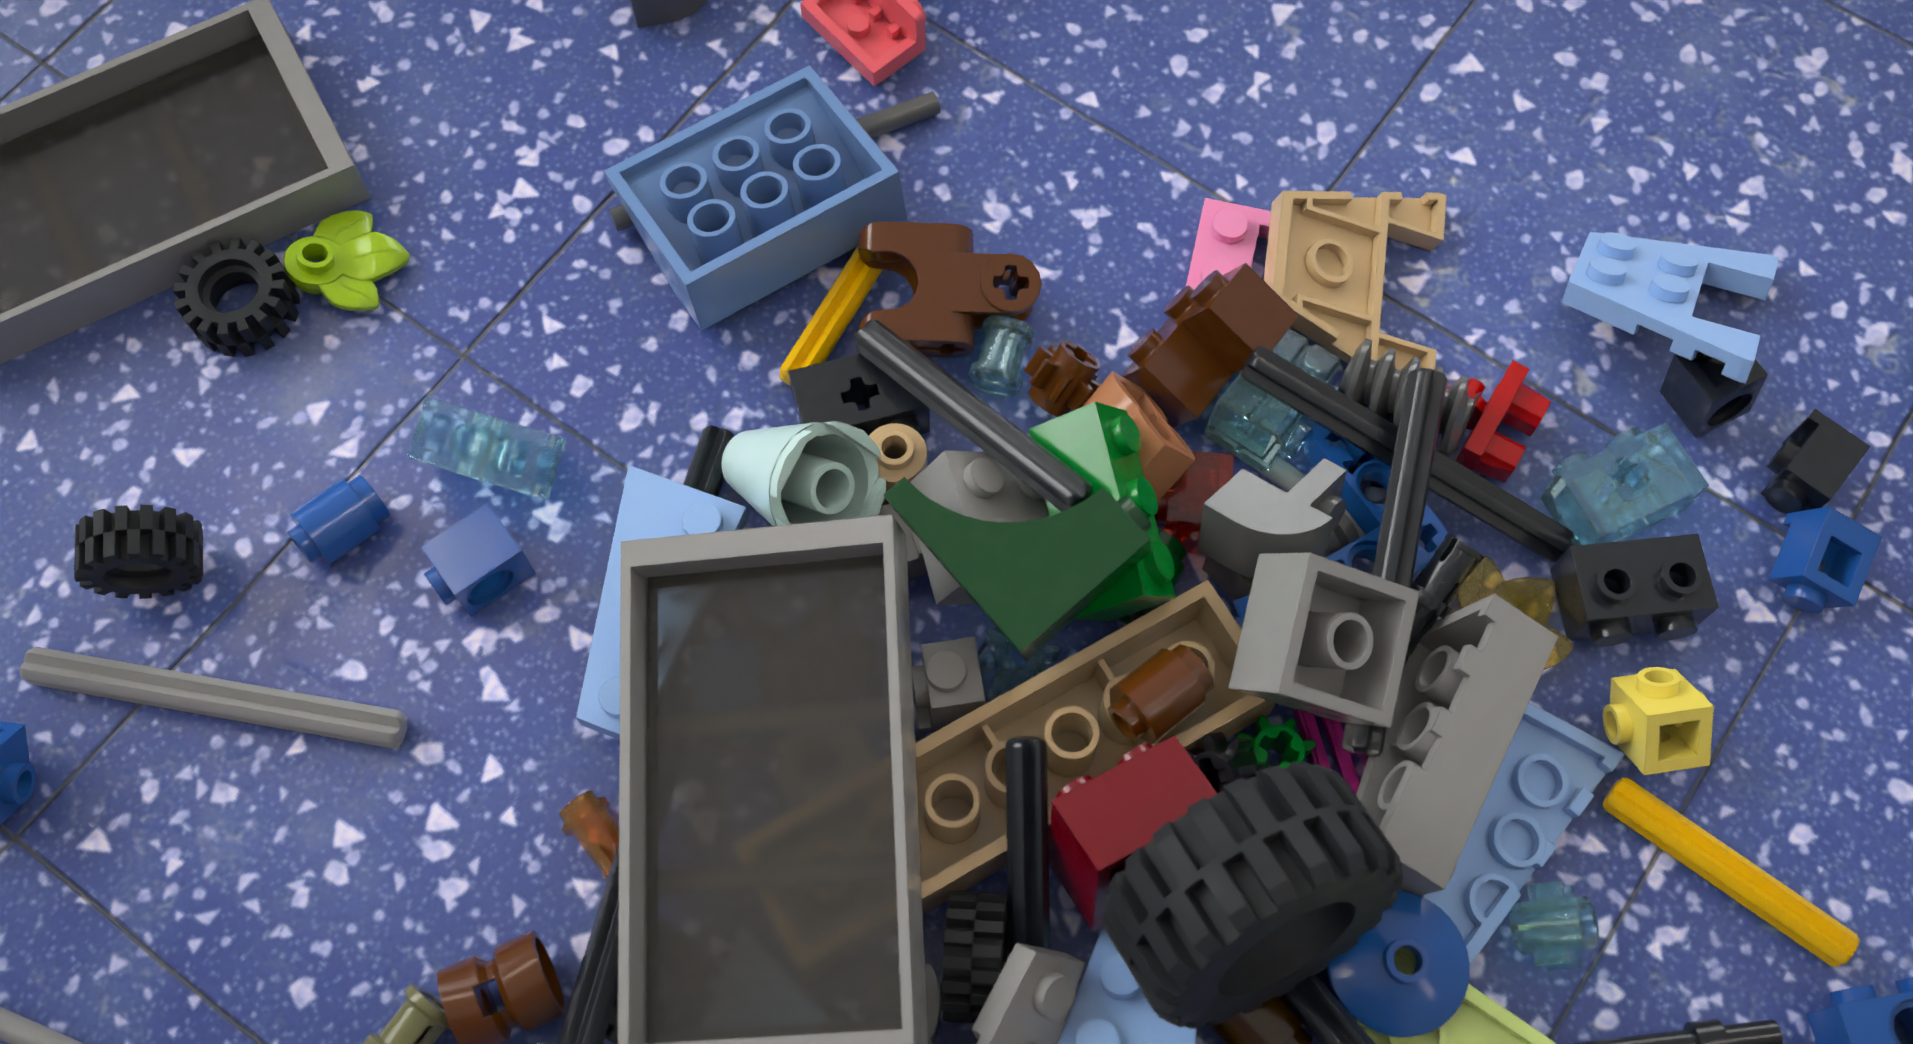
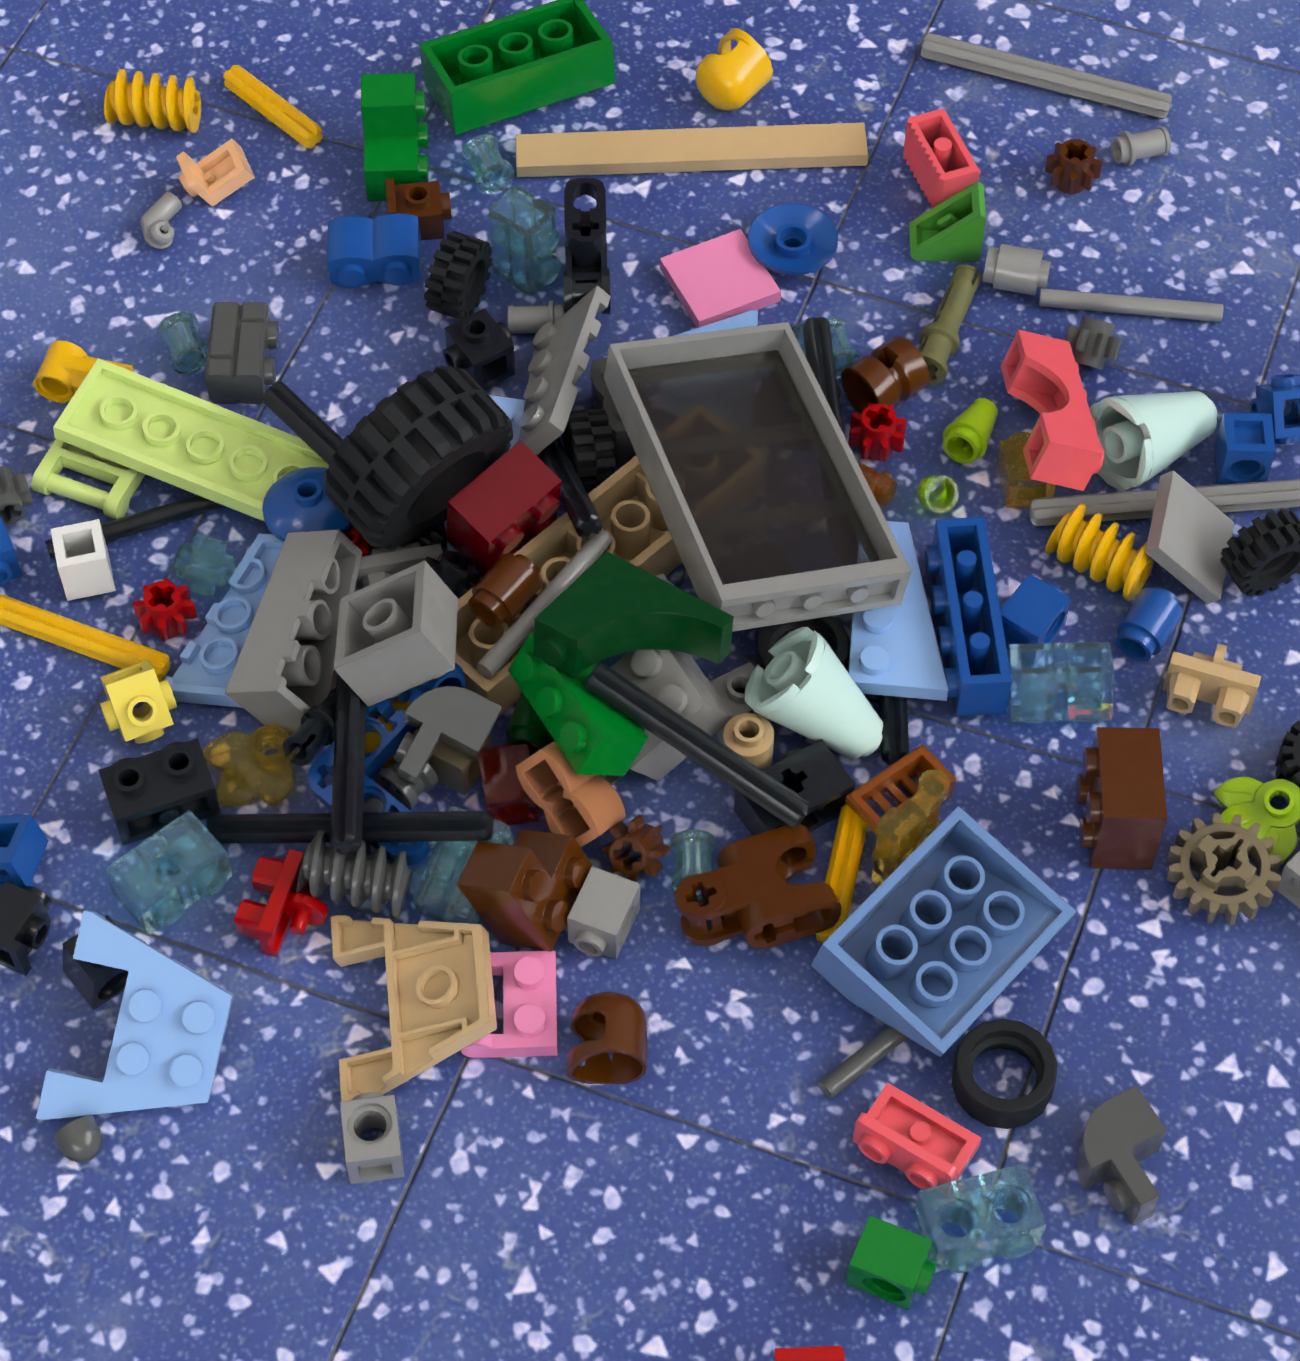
camera: 165 degrees right, 10 degrees down
(74, 721) = (1244, 448): none -> blue brick
(176, 977) = (1093, 342): none -> dark grey gear
(186, 784) = (1149, 433): none -> light aqua cone
(224, 607) = (1189, 537): none -> light grey tile
(276, 917) = (1064, 439): none -> coral arch
(293, 401) = (1212, 682): none -> tan hips
(343, 629) = (1101, 552): none -> yellow piece
(399, 776) = (1013, 468): none -> clear yellow brick
(417, 202) = (1234, 887): none -> dark tan gear
(419, 878) = (970, 432): none -> lime cone
(488, 277) = (1122, 798): none -> reddish brown brick
(513, 786) = (942, 498): none -> clear neon green hinge
(530, 906) = (877, 432): none -> red gear
(554, 570) = (970, 616): none -> blue brick
(709, 361) = (898, 773): none -> dark orange slope
(735, 31) = (1009, 1036): none -> black tyre
(764, 297) = (906, 828): none -> clear yellow plate
(1098, 683) = (521, 628): none -> light grey bar
(1118, 317) = (603, 913): none -> light grey brick
(1138, 190) = (606, 1025): none -> reddish brown helmet
(1423, 128) = (377, 1158): none -> light grey brick
(1626, 857) = (164, 609): none -> red gear
(1731, 226) = (80, 1139): none -> dark grey hinge
(1733, 968) = (83, 559): none -> white brick

